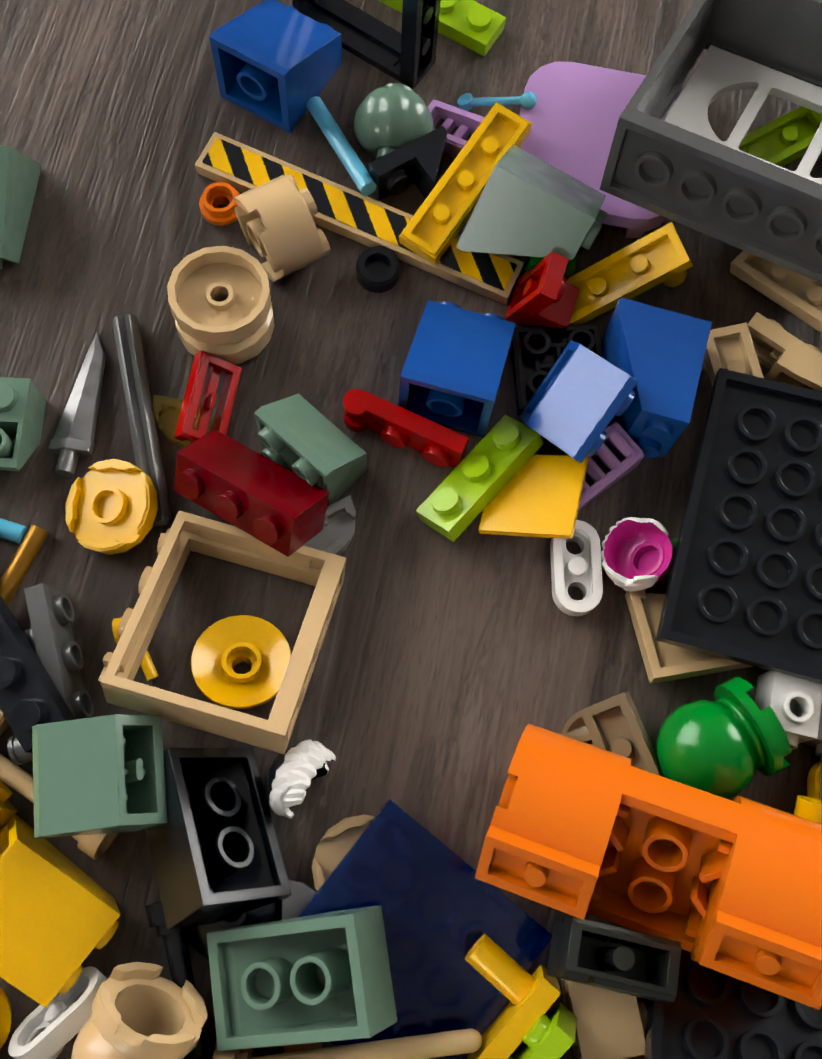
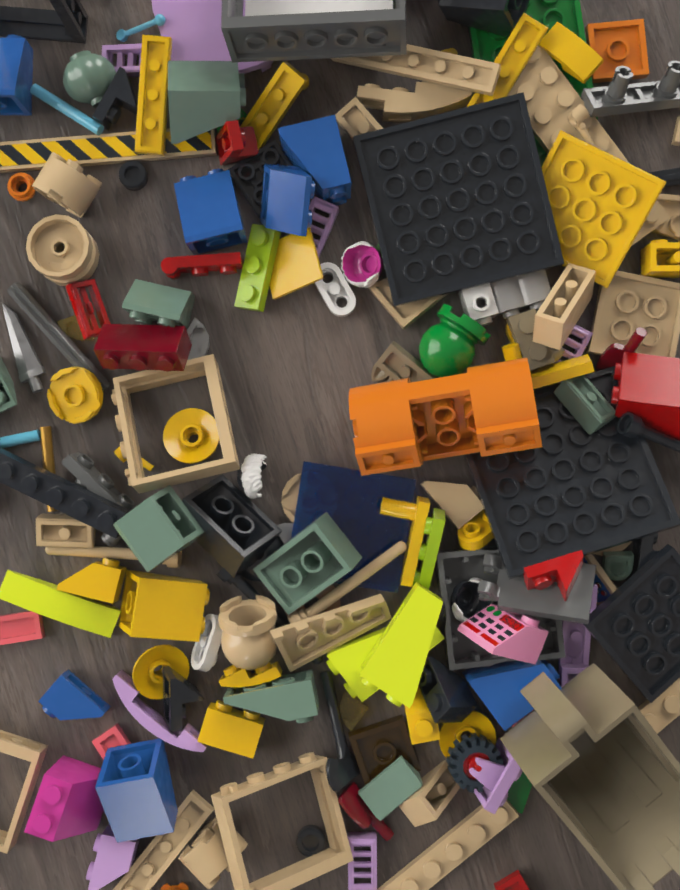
camera: 25 degrees left, 15 degrees up
(614, 958) = (446, 474): pearl dark grey brick -> none

